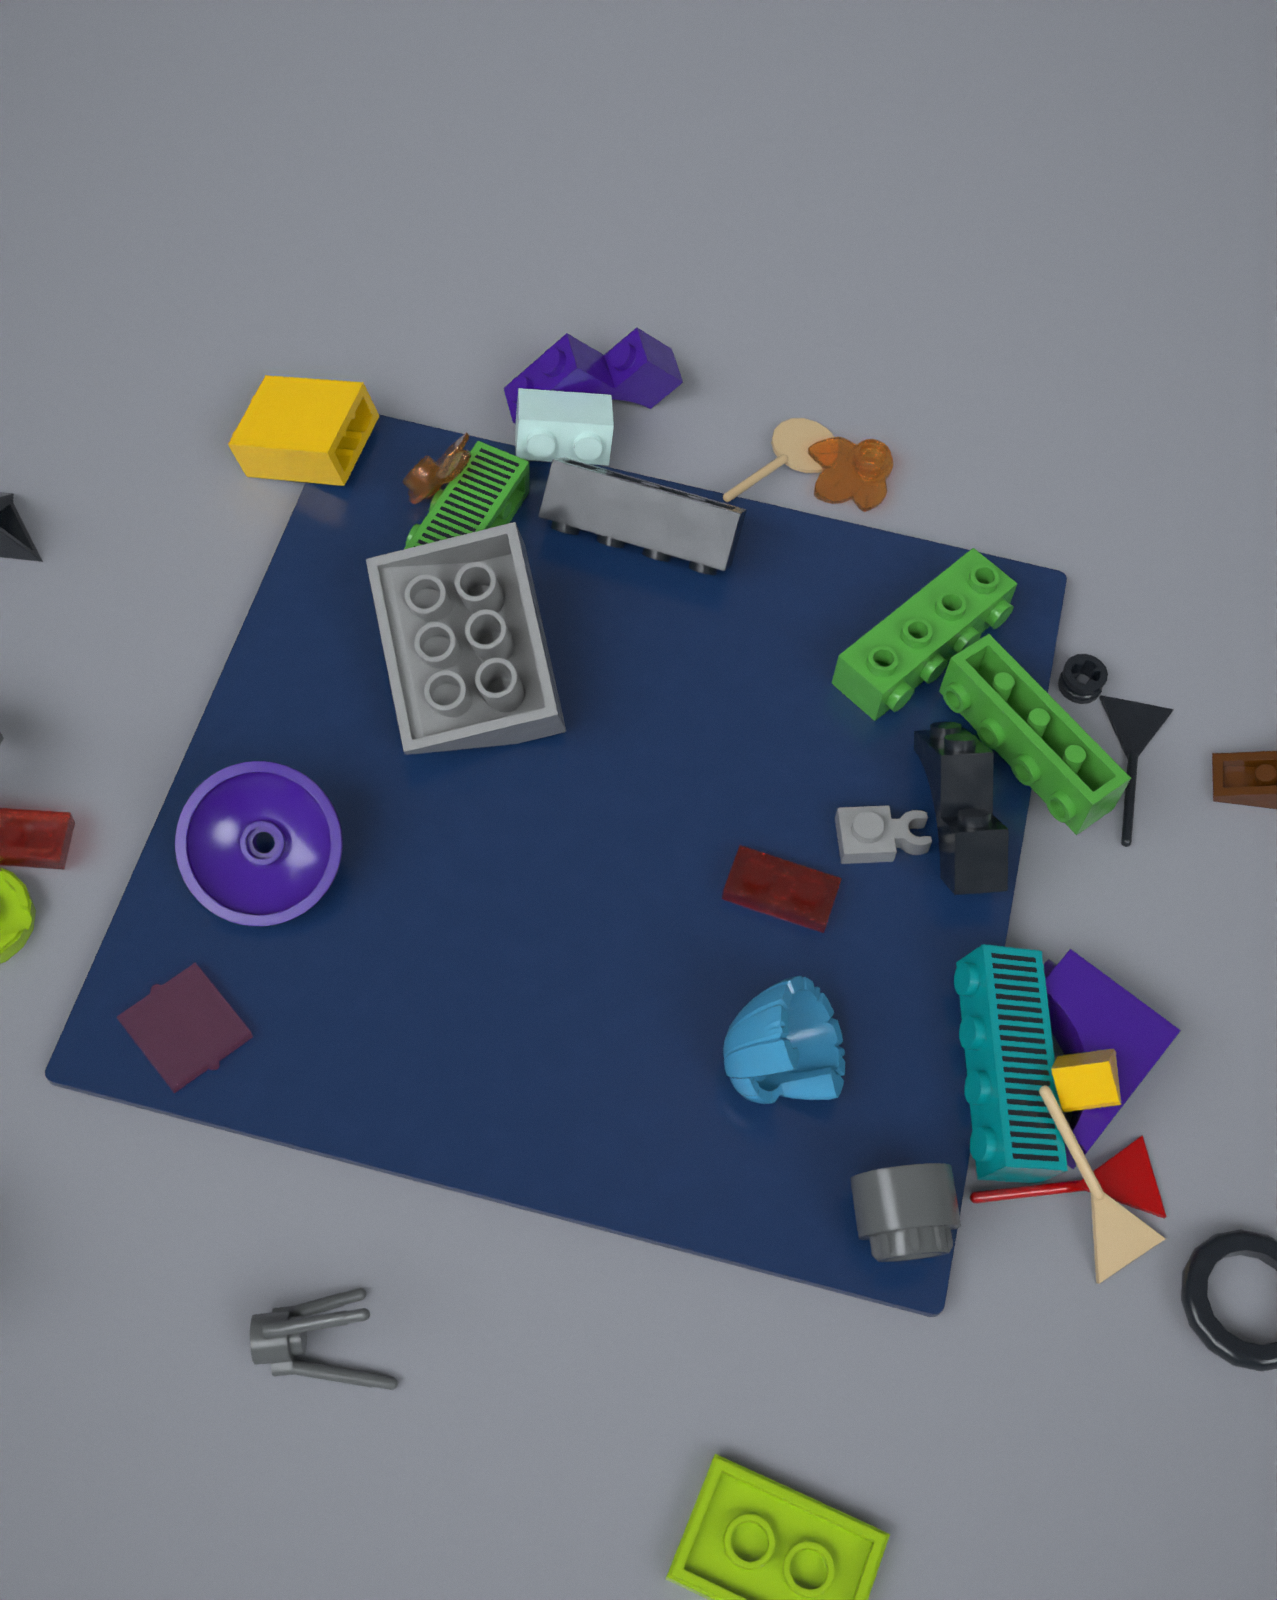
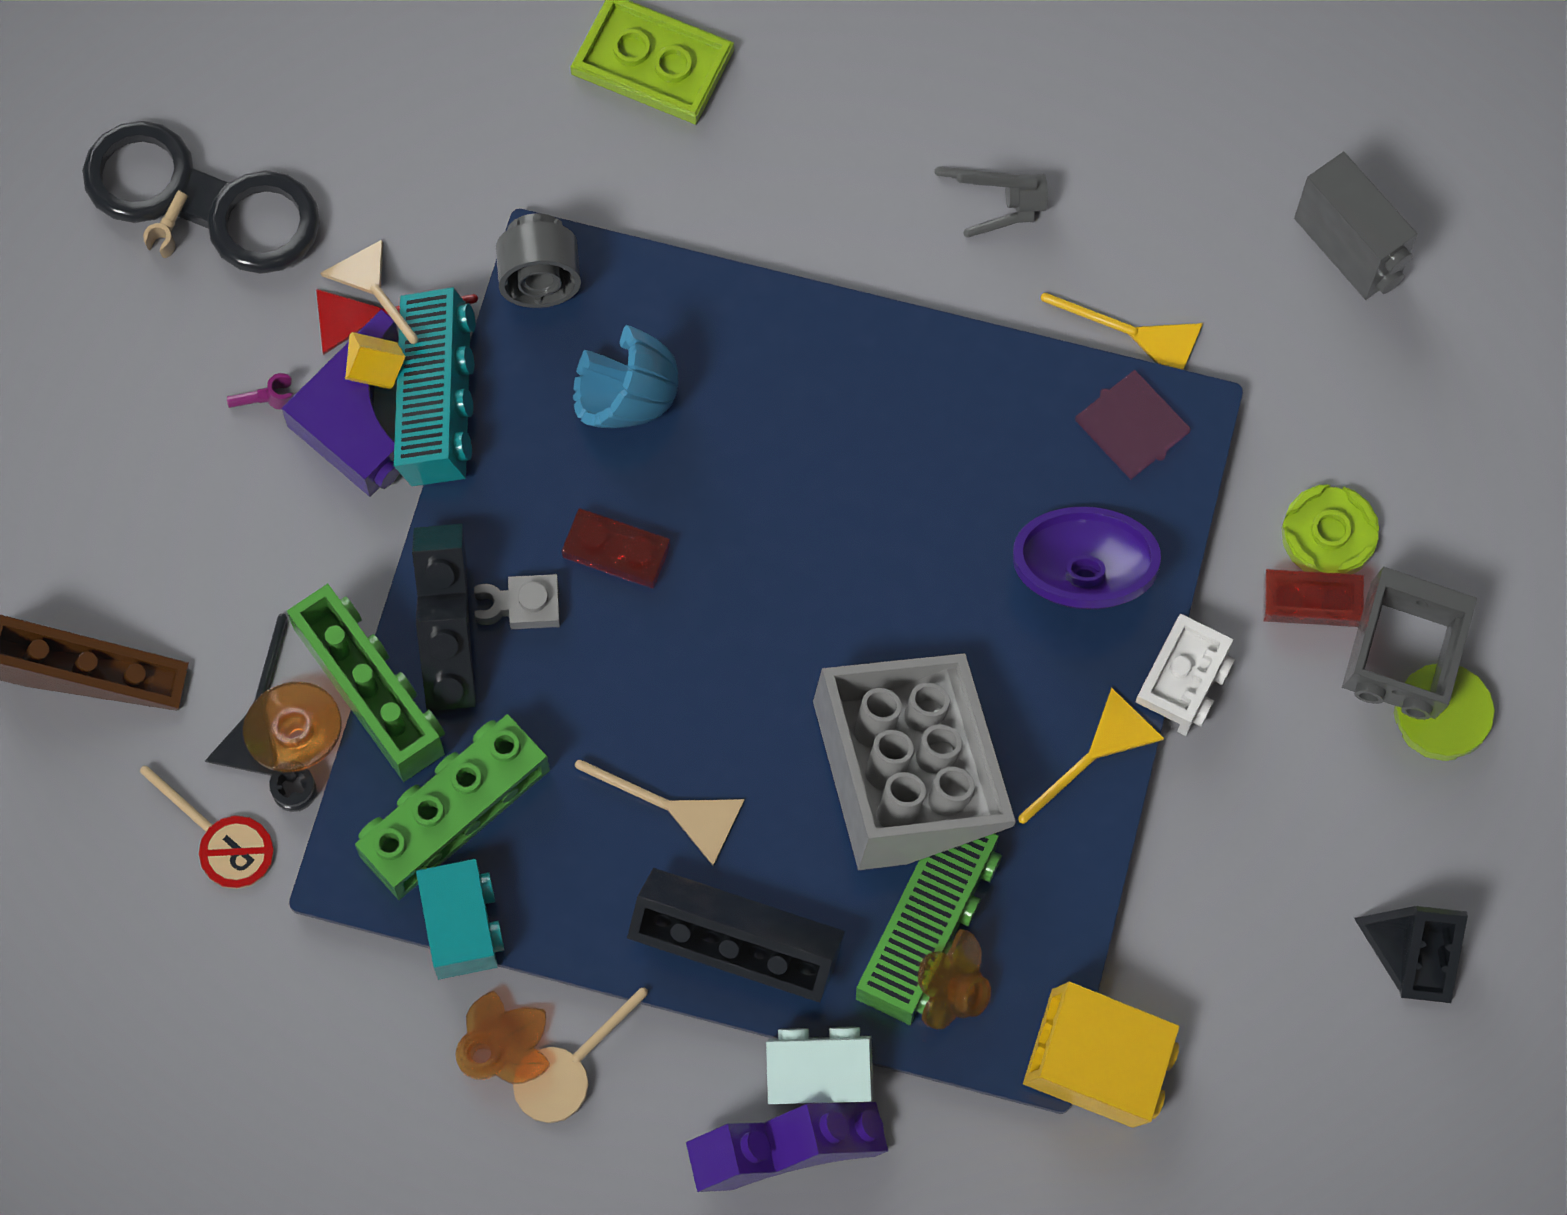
camera: 175 degrees left, 10 degrees up
(130, 1144) = (1164, 344): none -> yellow piece
(167, 751) = (1185, 672): none -> white bracket
(249, 707) = (1118, 731): none -> yellow piece
(675, 632) = (702, 820): none -> tan piece
(905, 539) = (458, 919): none -> teal brick
(1109, 707) = (289, 709): none -> clear orange dish
(1133, 633) = (233, 850): none -> piece
(1199, 1079) = (264, 395): none -> magenta hand

